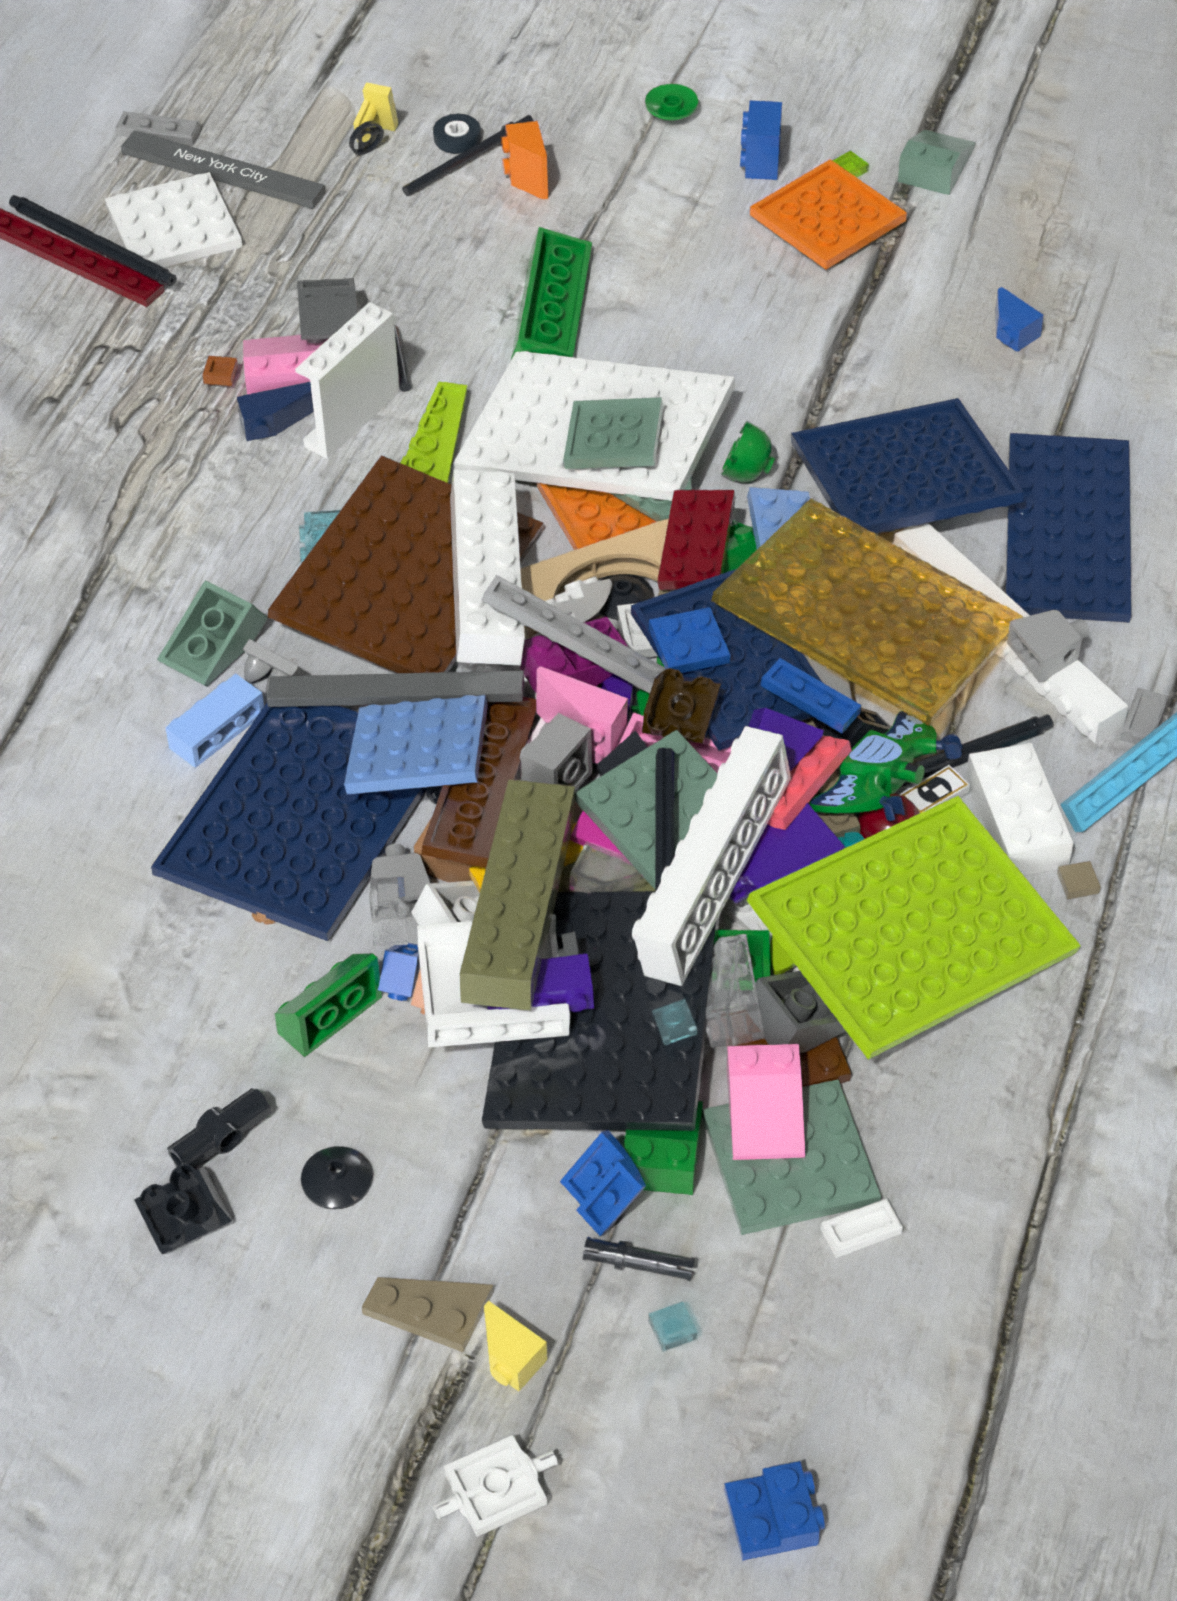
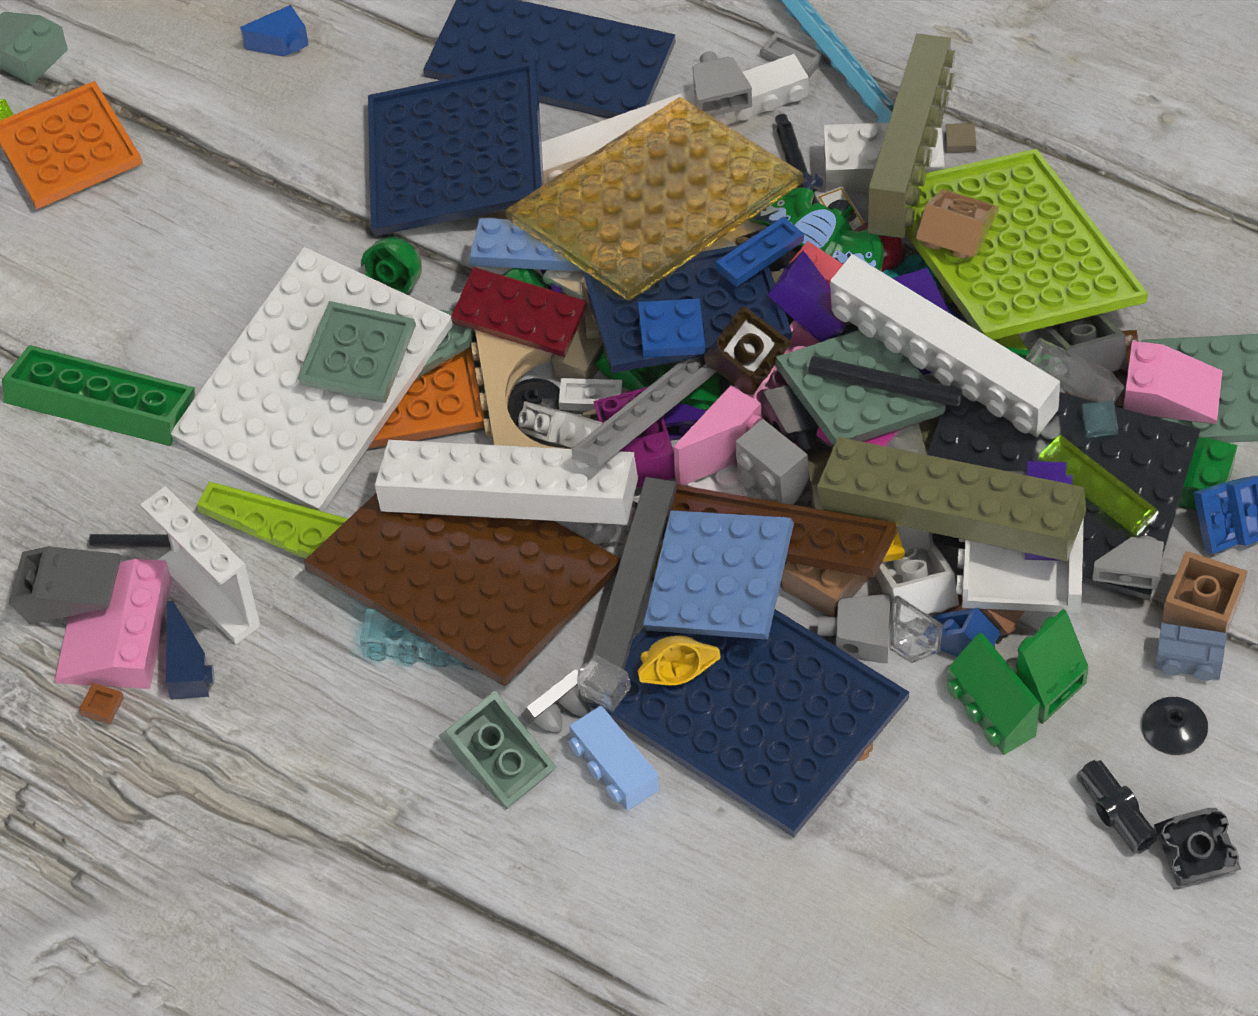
camera: 75 degrees left, 5 degrees up
(275, 680) = (603, 682): none -> clear brick
(317, 732) = (676, 660): none -> yellow hat
(360, 1033) = (1052, 664): none -> green slope
(422, 1172) = (1190, 651): none -> sand blue brick
(490, 1171) = (1204, 594): none -> medium nougat brick
(500, 1086) = (1131, 563): none -> light grey slope
(594, 1039) = (1101, 486): none -> clear neon green tile
(910, 857) = (956, 223): none -> medium nougat slope
(1009, 791) = (910, 136): none -> olive brick

